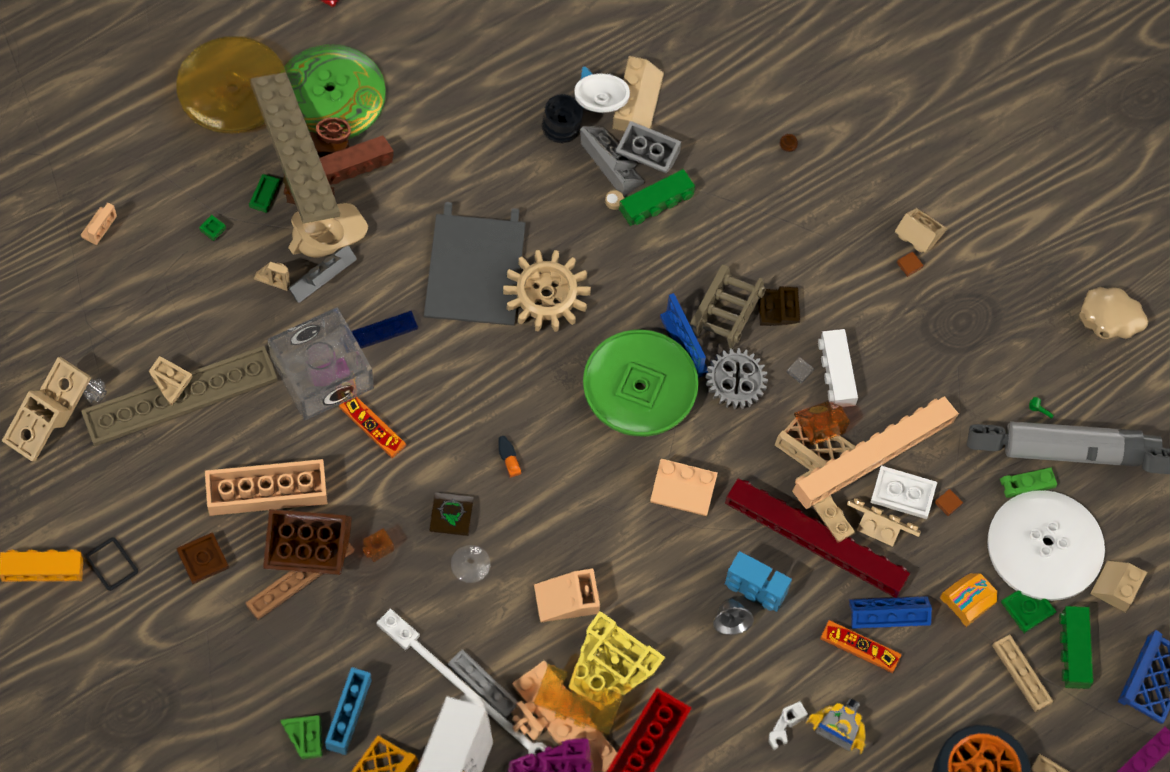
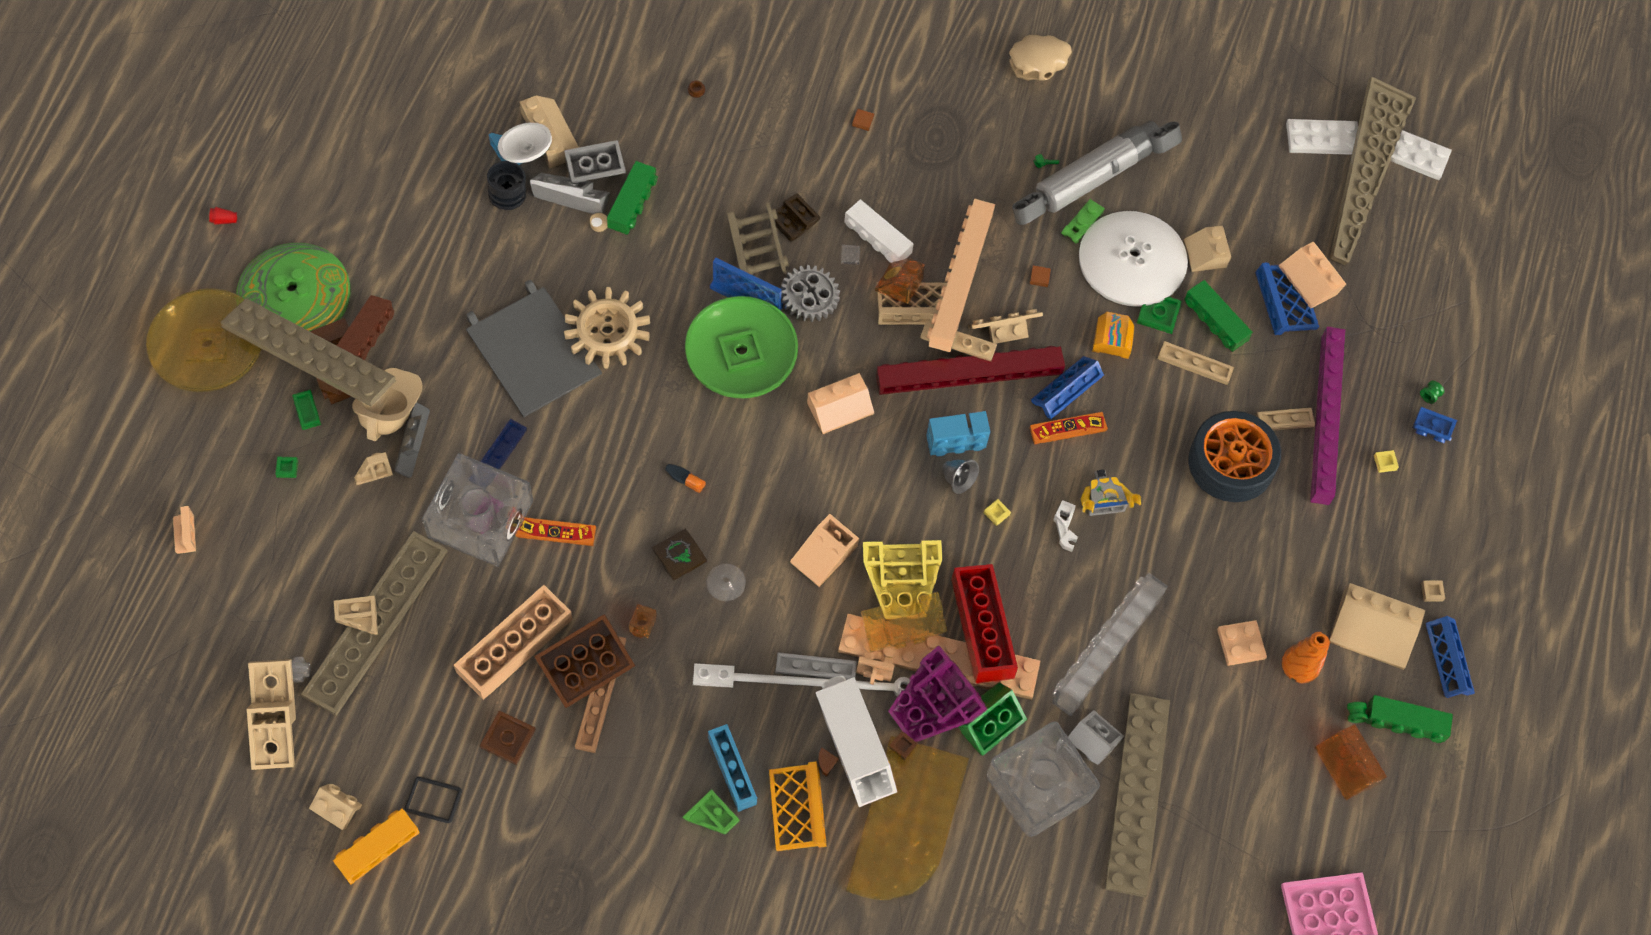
camera: 40 degrees left, 0 degrees up
(37, 513) = (335, 805): none -> tan bracket
(333, 130) = (325, 318): copper wheel -> none
(738, 671) = (997, 512): none -> light yellow tile
(903, 492) = (1003, 291): white plate -> none
(920, 230) = (851, 89): tan slope -> none

